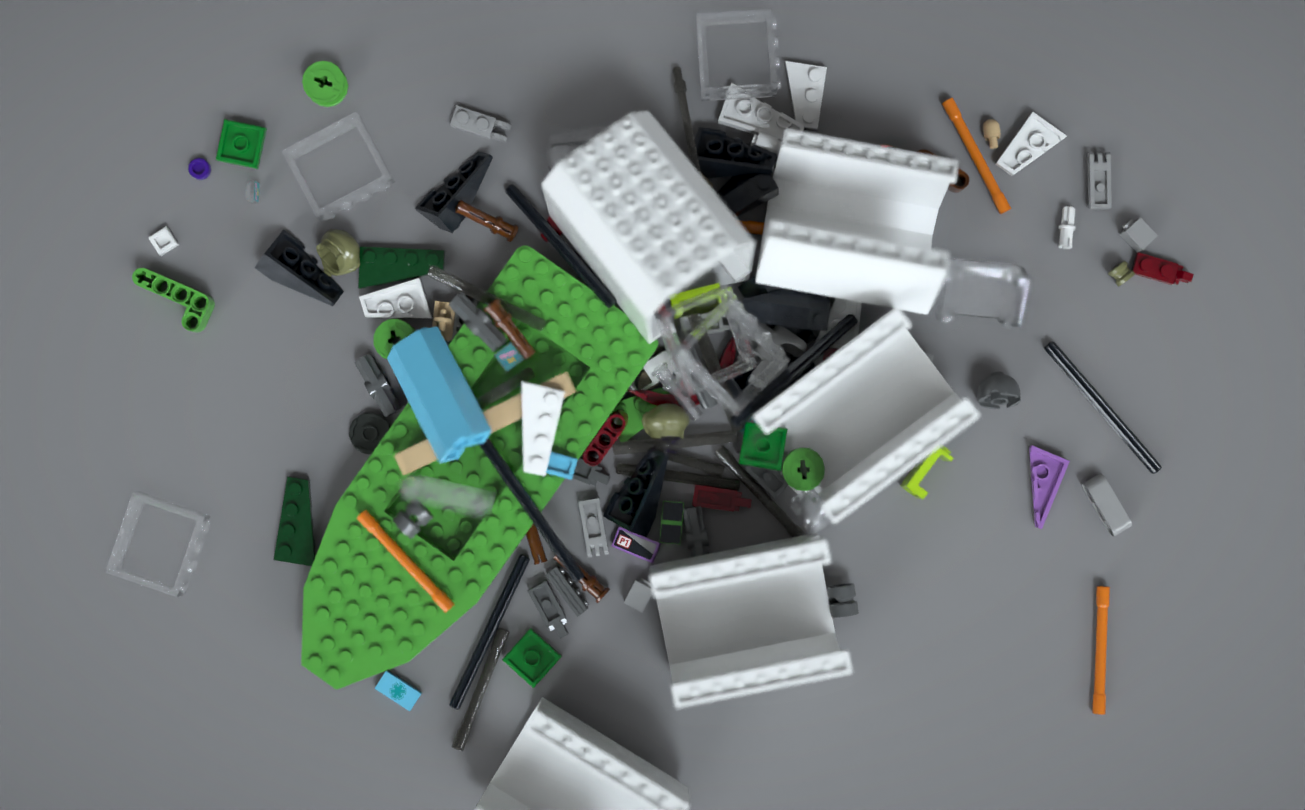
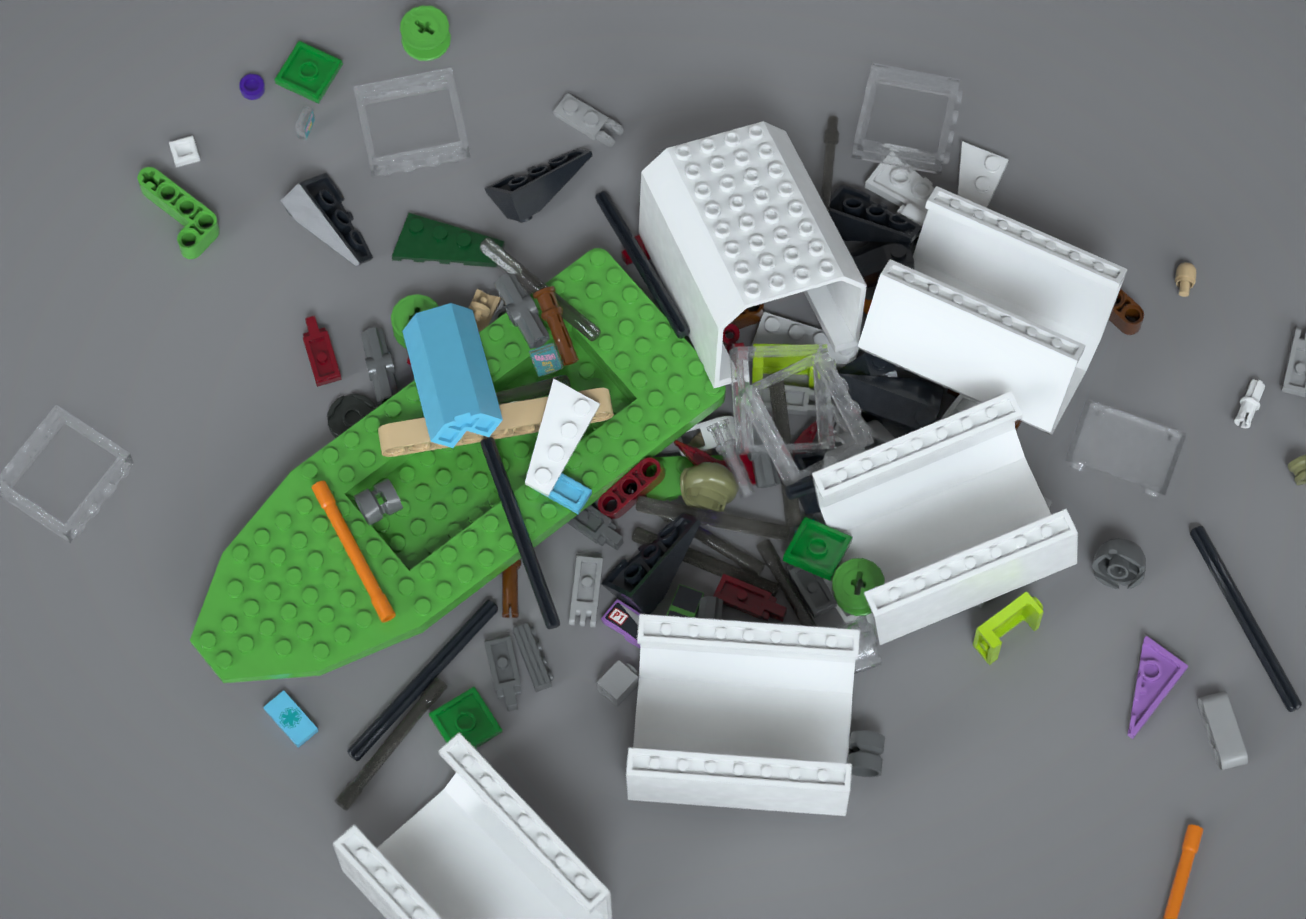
camera: 10 degrees right, 20 degrees down
(295, 531) = (232, 496): dark green wing -> none
(327, 386) = (320, 353): none -> dark red hinge
(338, 252) = (382, 210): olive helmet -> none
(398, 301) = (440, 281): white wing -> none
(448, 495) = (460, 502): clear window -> none
(497, 222) = (572, 229): reddish brown pin -> none
(588, 585) = (560, 652): reddish brown pin -> none
(956, 117) = (1175, 348): orange piece -> none
(1029, 143) = (1227, 300): white wing -> none

